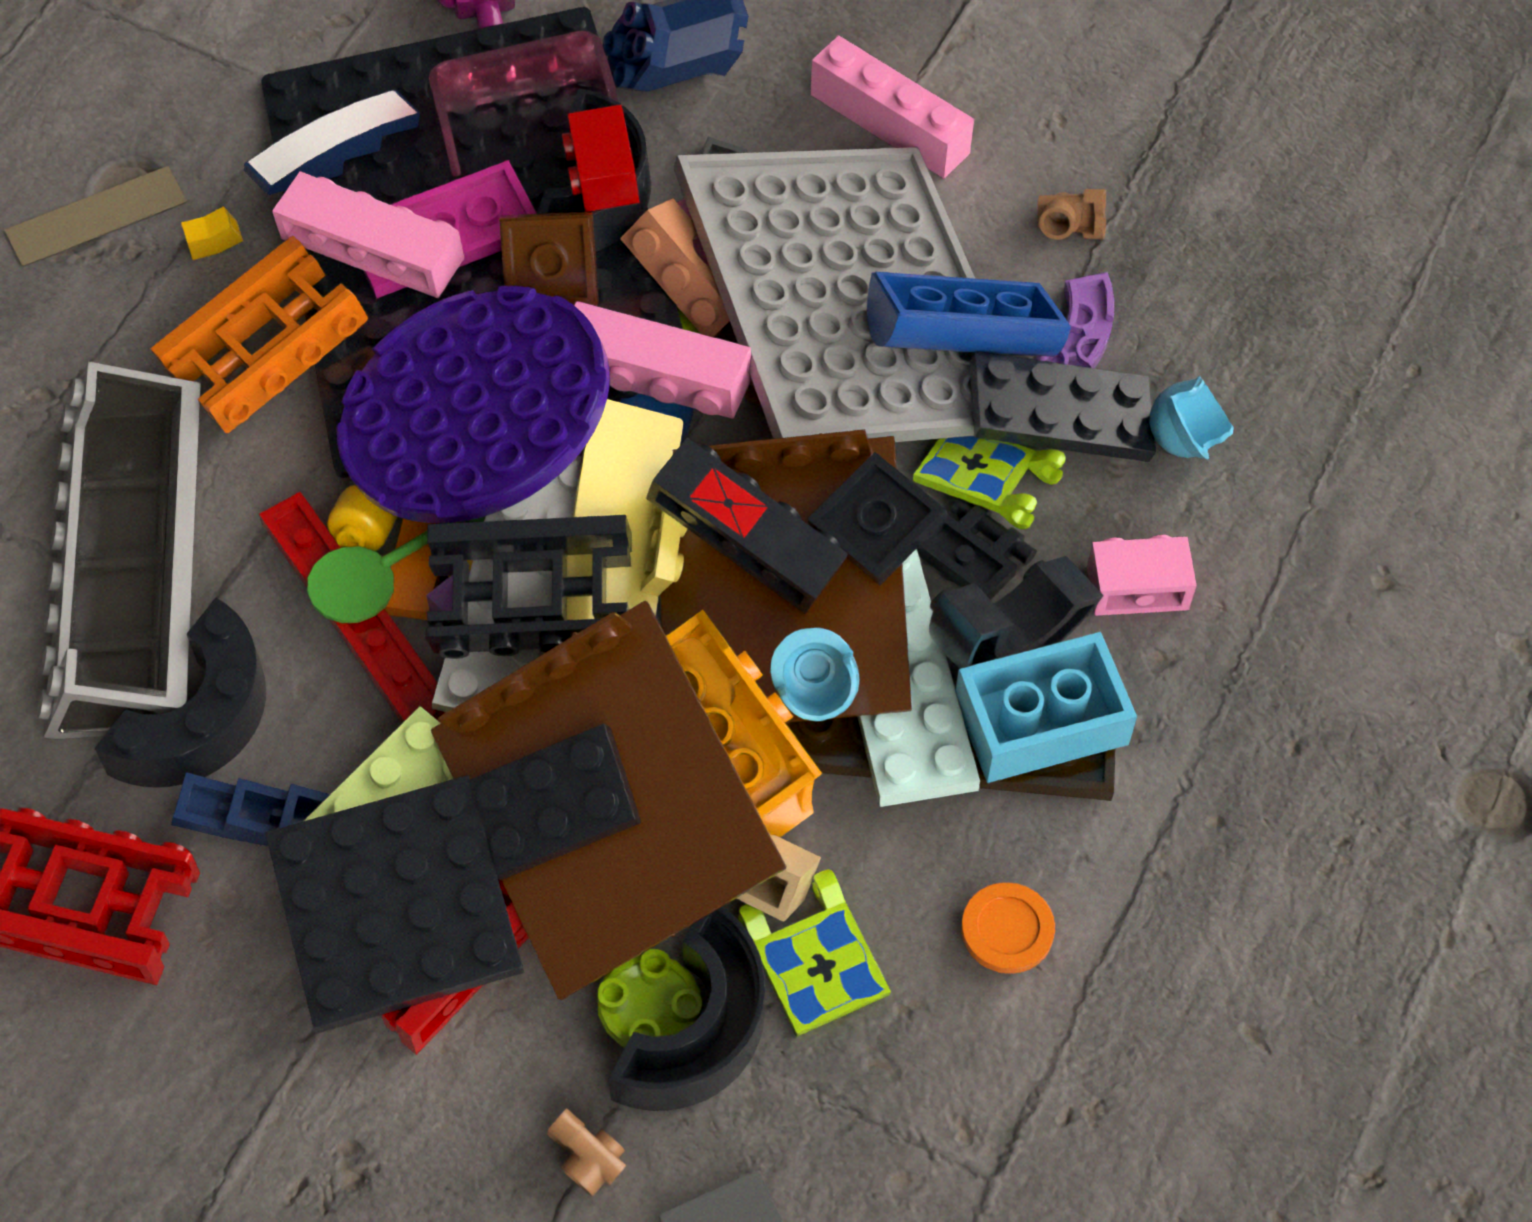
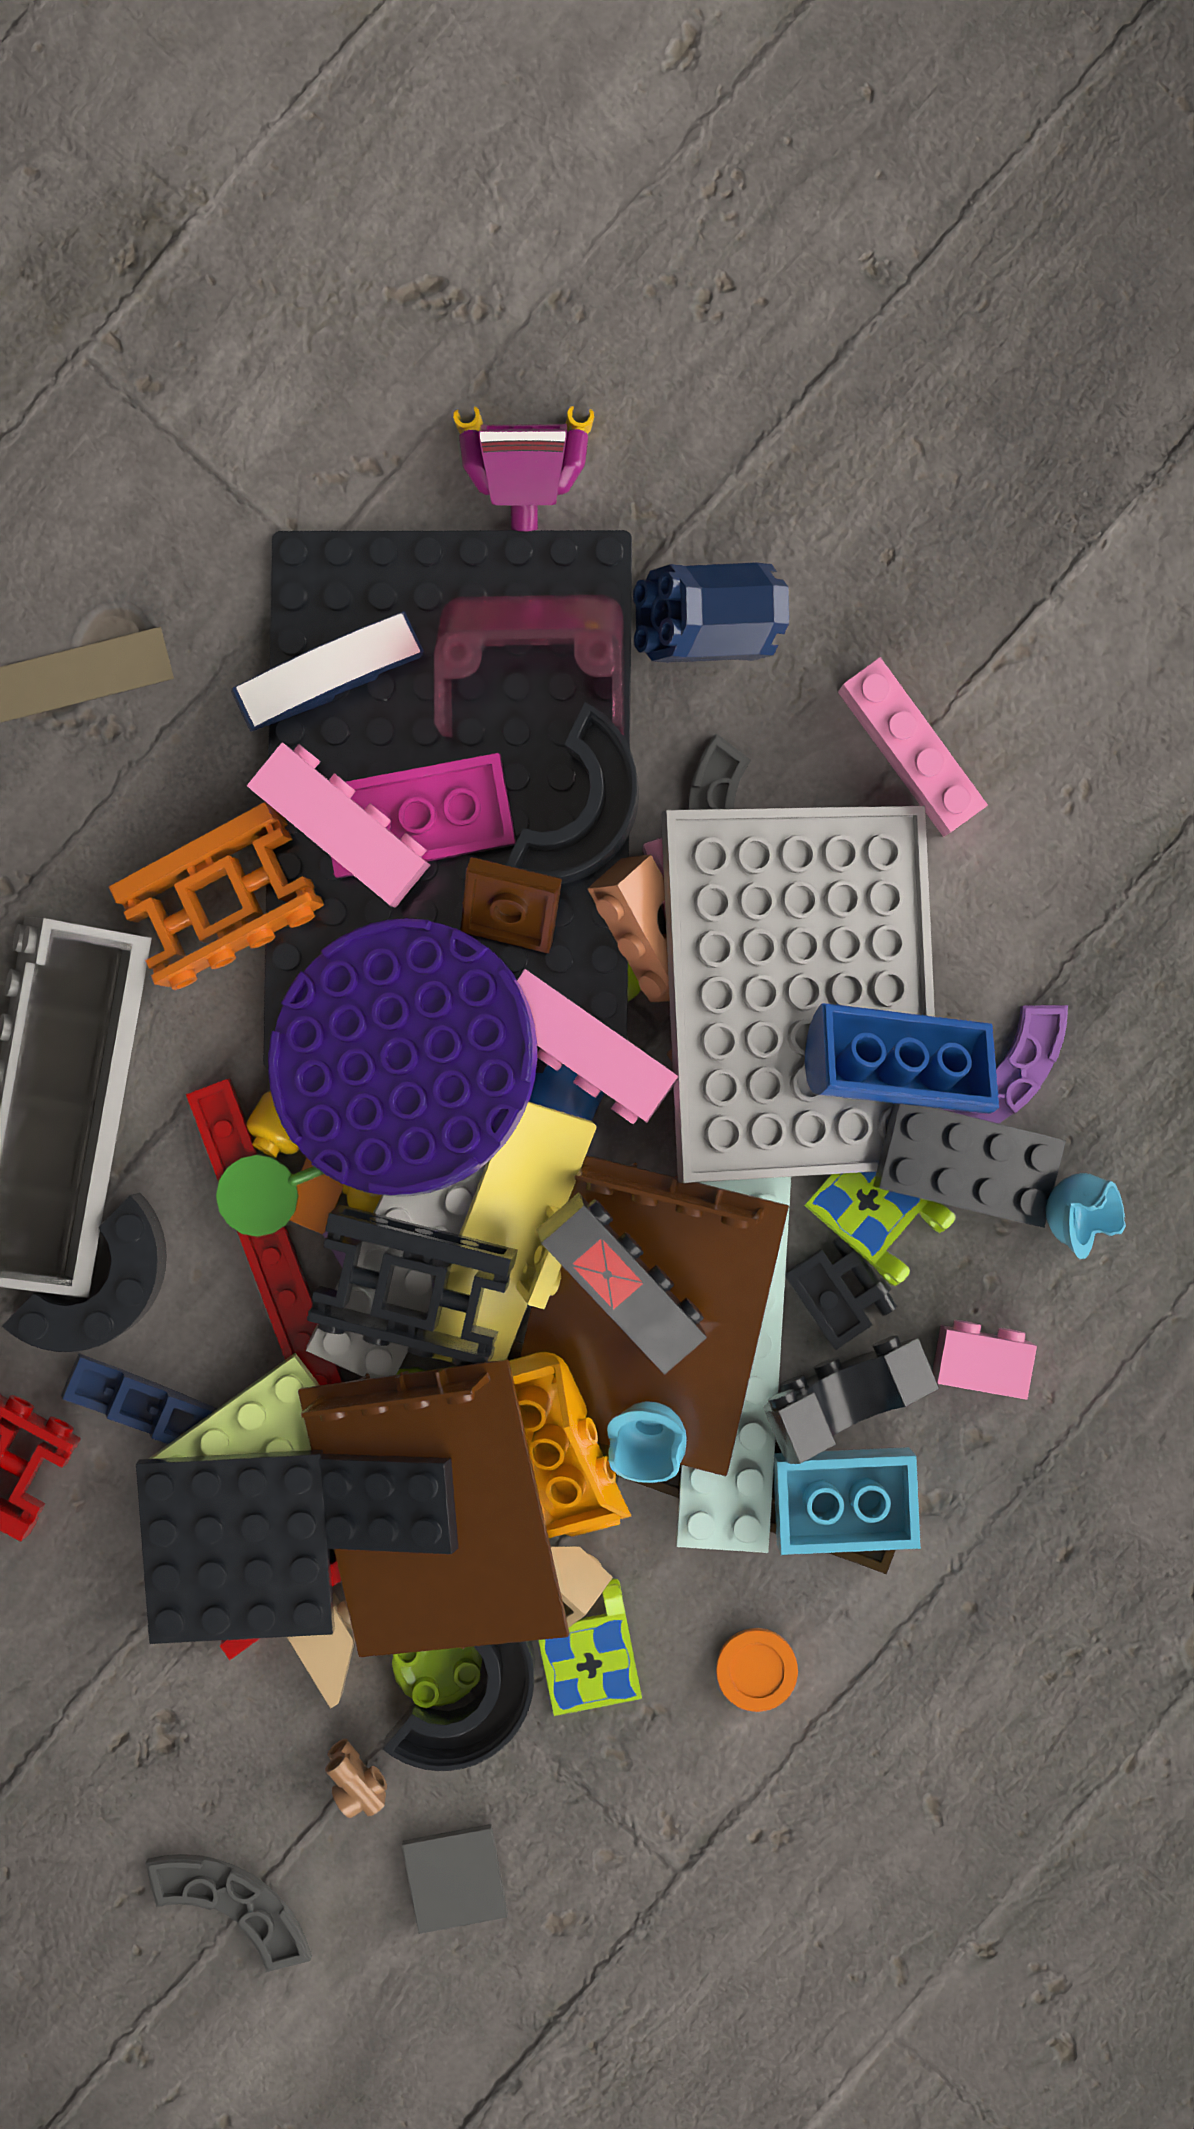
camera: 15 degrees right, 30 degrees up
(211, 233) = (191, 737): yellow piece -> none
(519, 1013) = (328, 1656): none -> tan slope
(603, 158) = (583, 822): red brick -> none
(878, 517) = (746, 1295): black plate -> none
(1069, 213) = (1048, 926): medium nougat plate -> none

